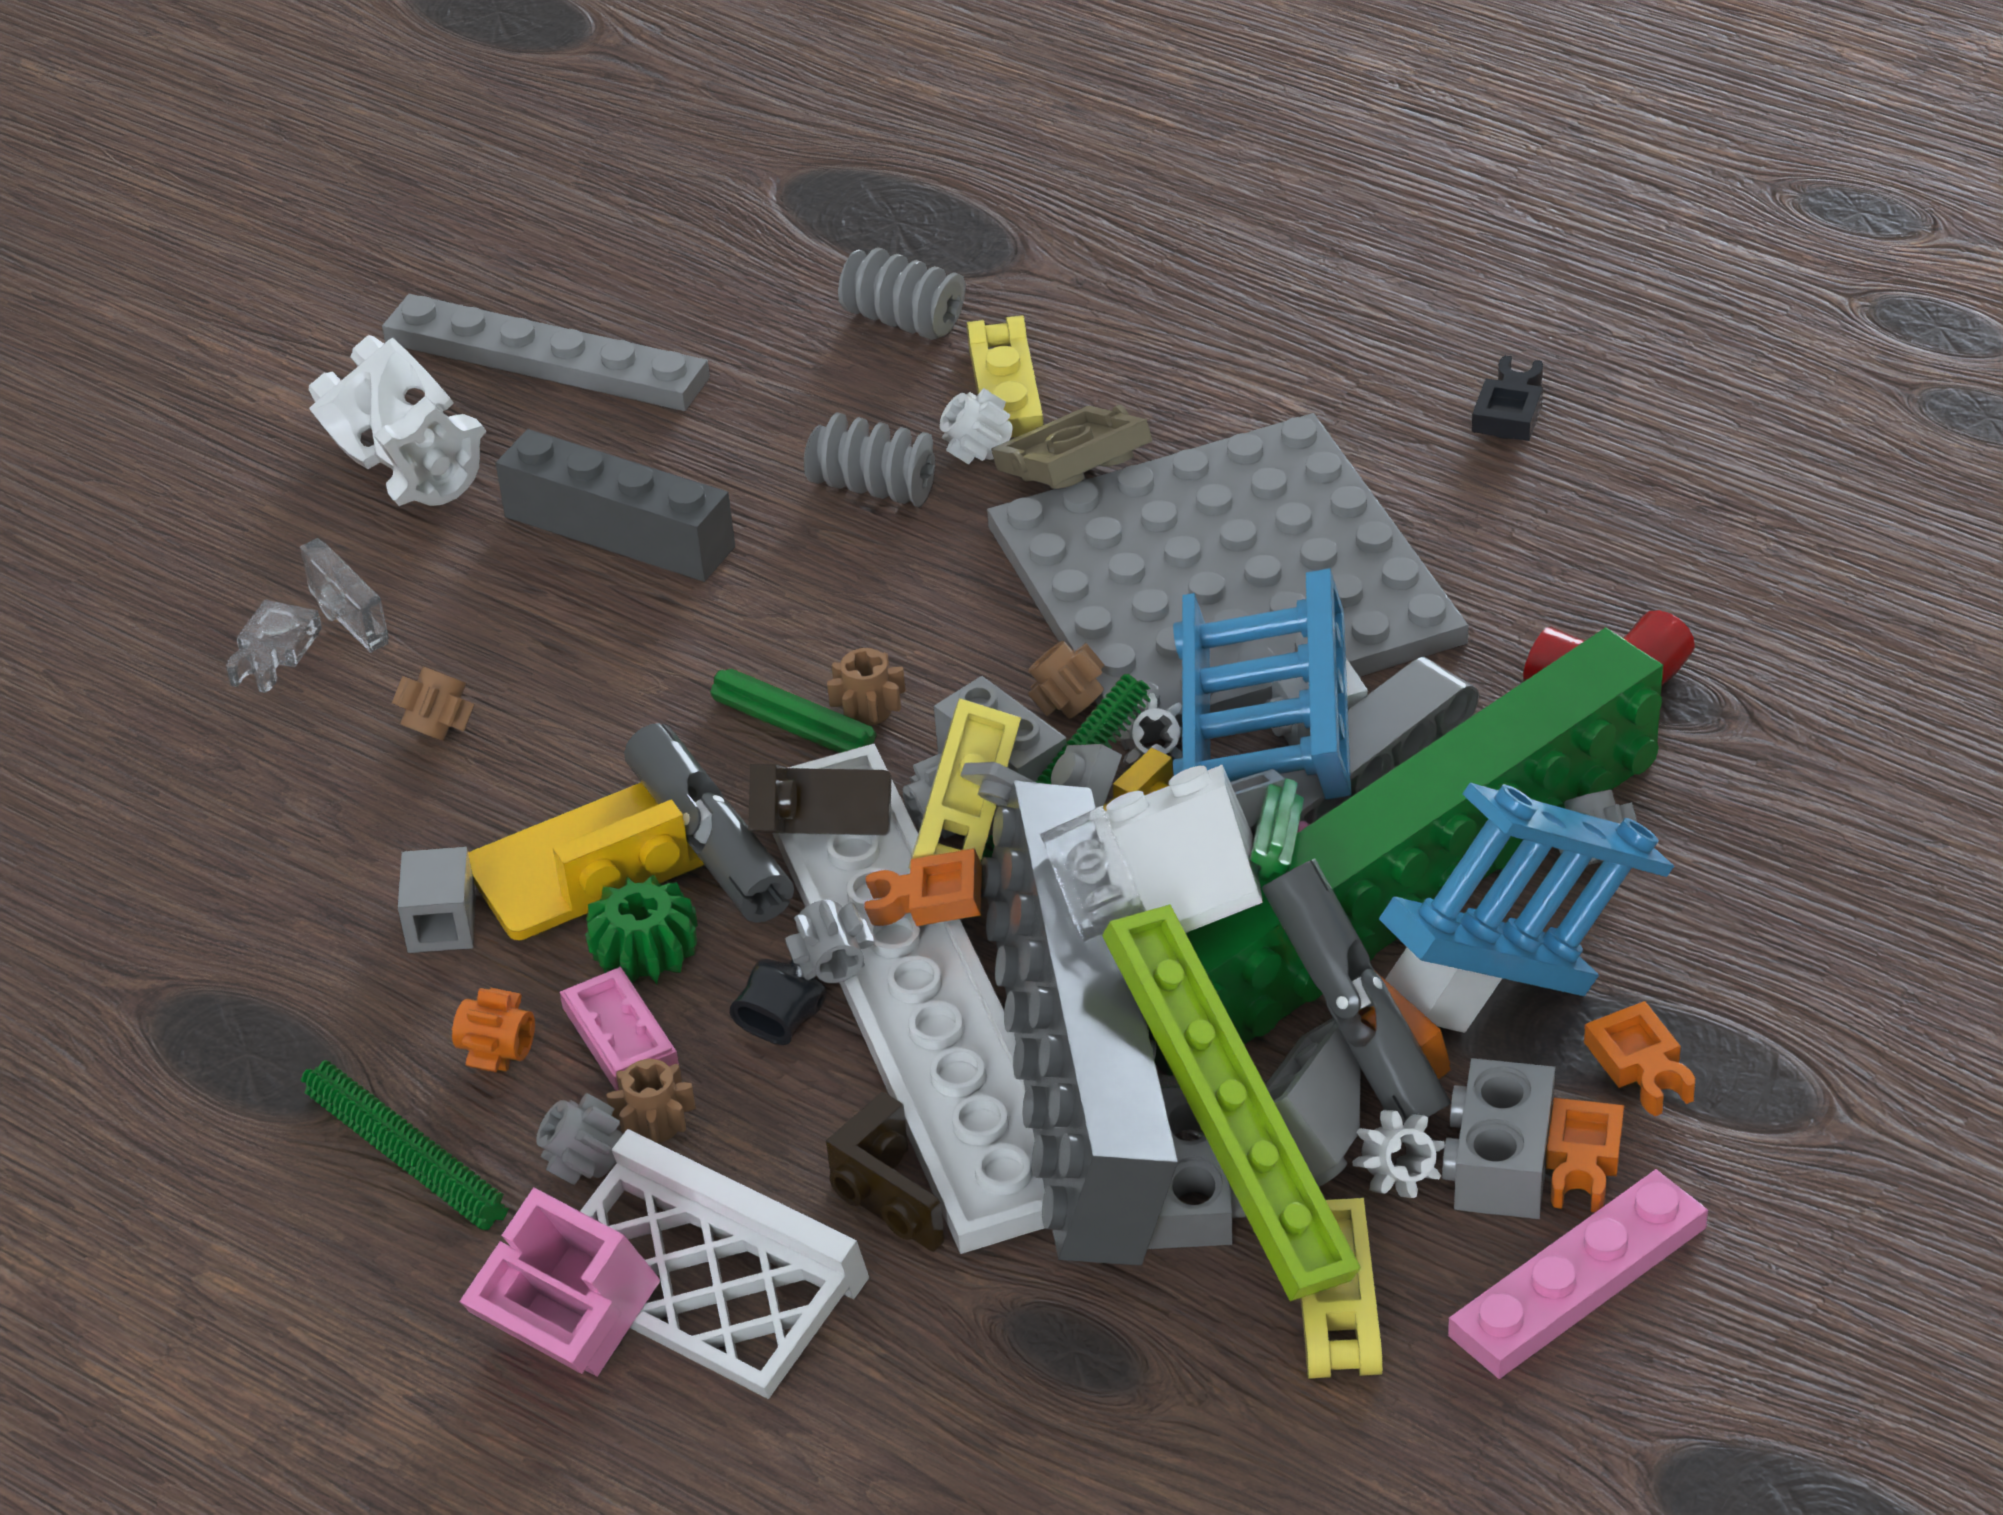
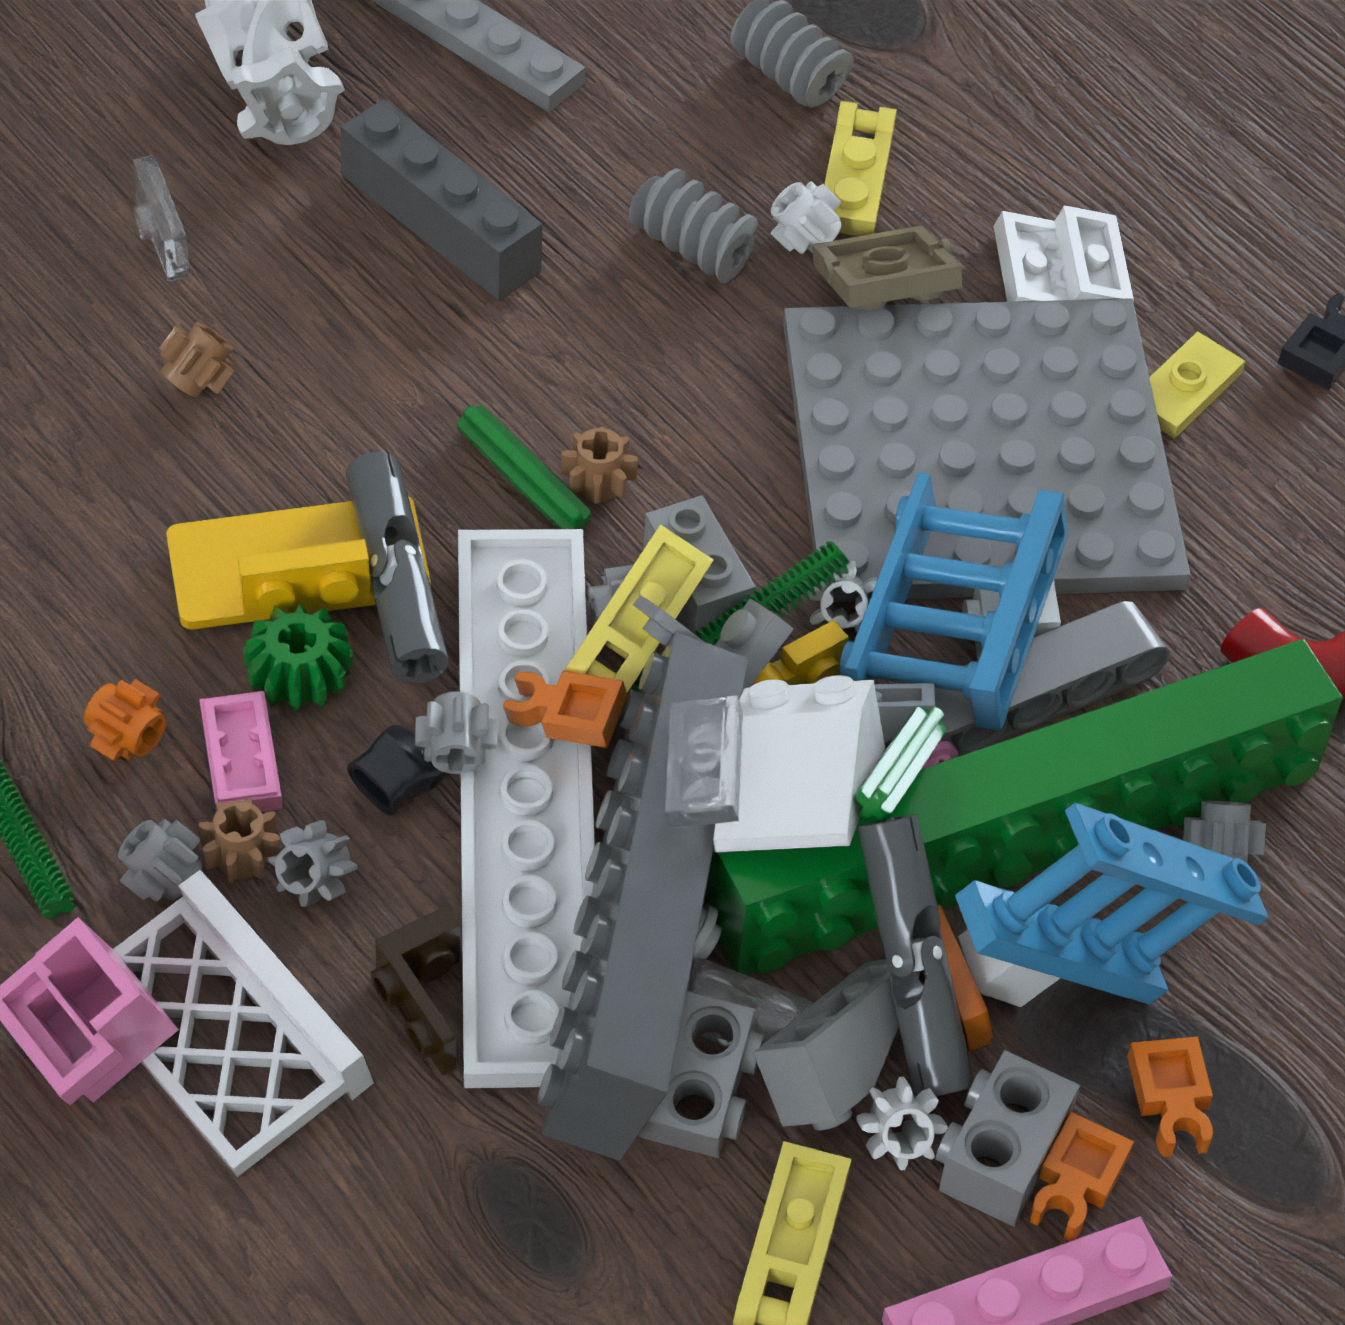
camera: 10 degrees right, 10 degrees up
(272, 637) = (82, 240): clear plate -> none
(437, 900) = (126, 566): light grey brick -> none
(714, 1099) = (330, 863): none -> light grey gear
(819, 800) = (499, 580): dark brown bracket -> none
(1066, 679) = (786, 517): medium nougat gear -> none
(1231, 1103) = (749, 1035): lime plate -> none
(1233, 398) = (1062, 258): none -> white slope
(1399, 467) = (1192, 381): none -> light yellow plate

